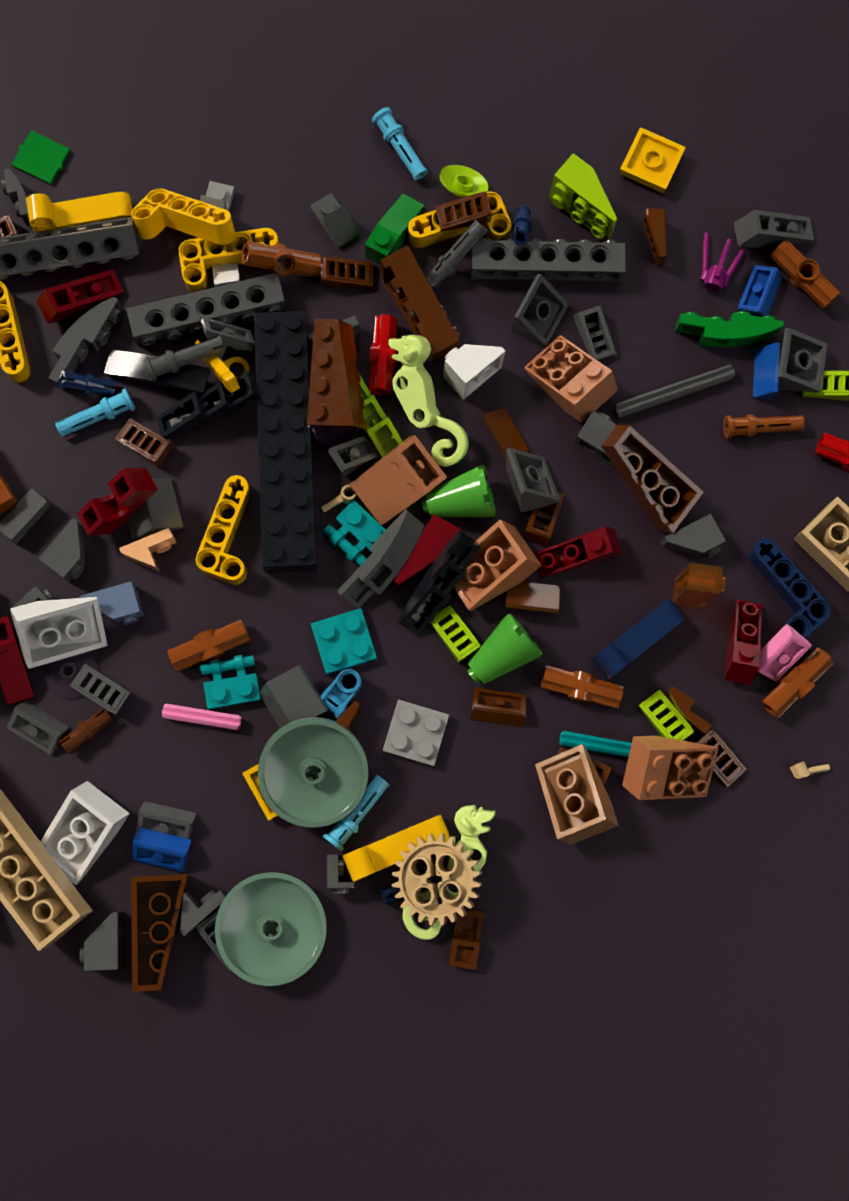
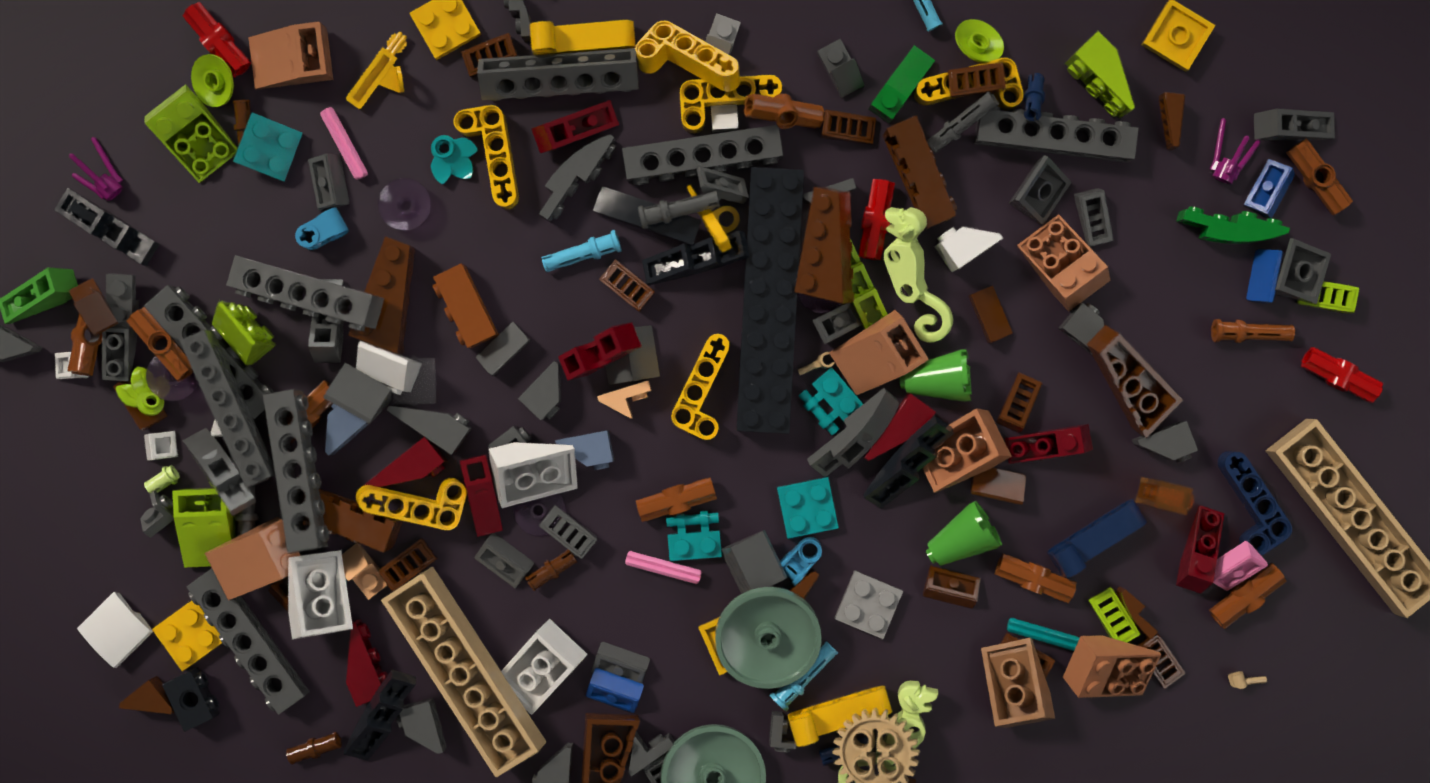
camera: 10 degrees right, 10 degrees up
(87, 383) = (576, 222): dark blue pin -> none
(467, 651) = (925, 533): lime slope -> none
(530, 480) = (1011, 366): dark grey slope -> none
(674, 391) = (1167, 286): dark grey axle -> none

